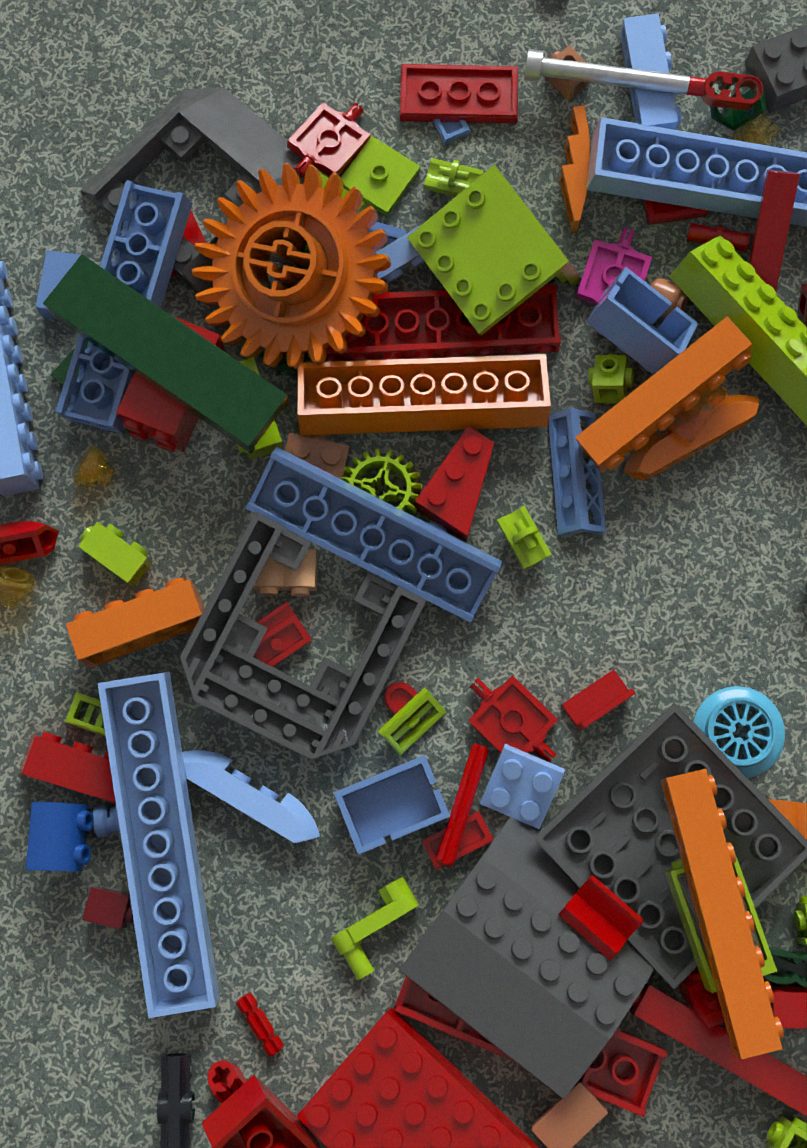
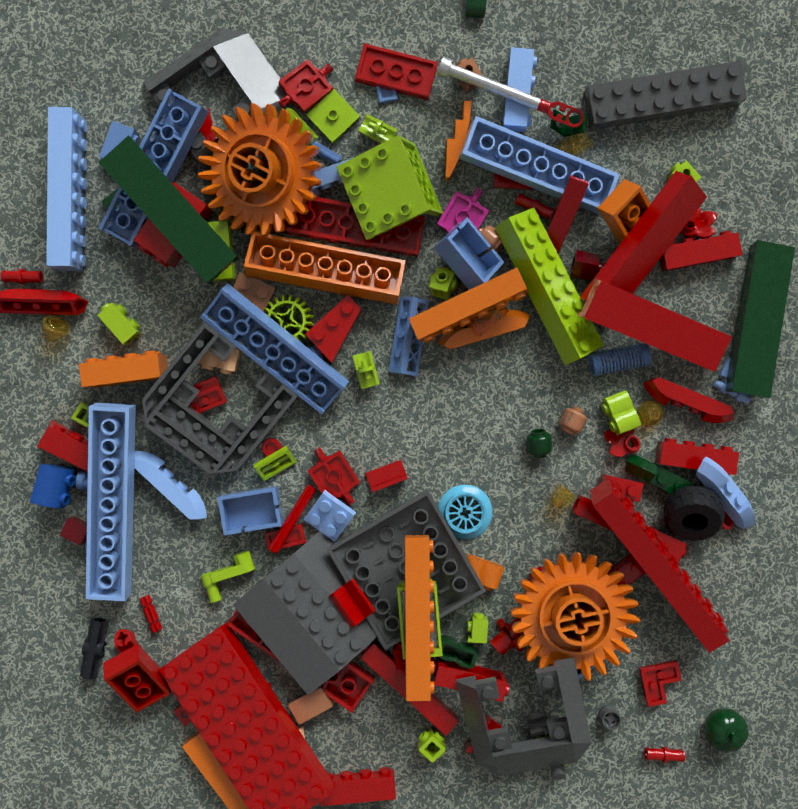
camera: 10 degrees right, 10 degrees up
(93, 469) = (116, 267): clear yellow brick -> none

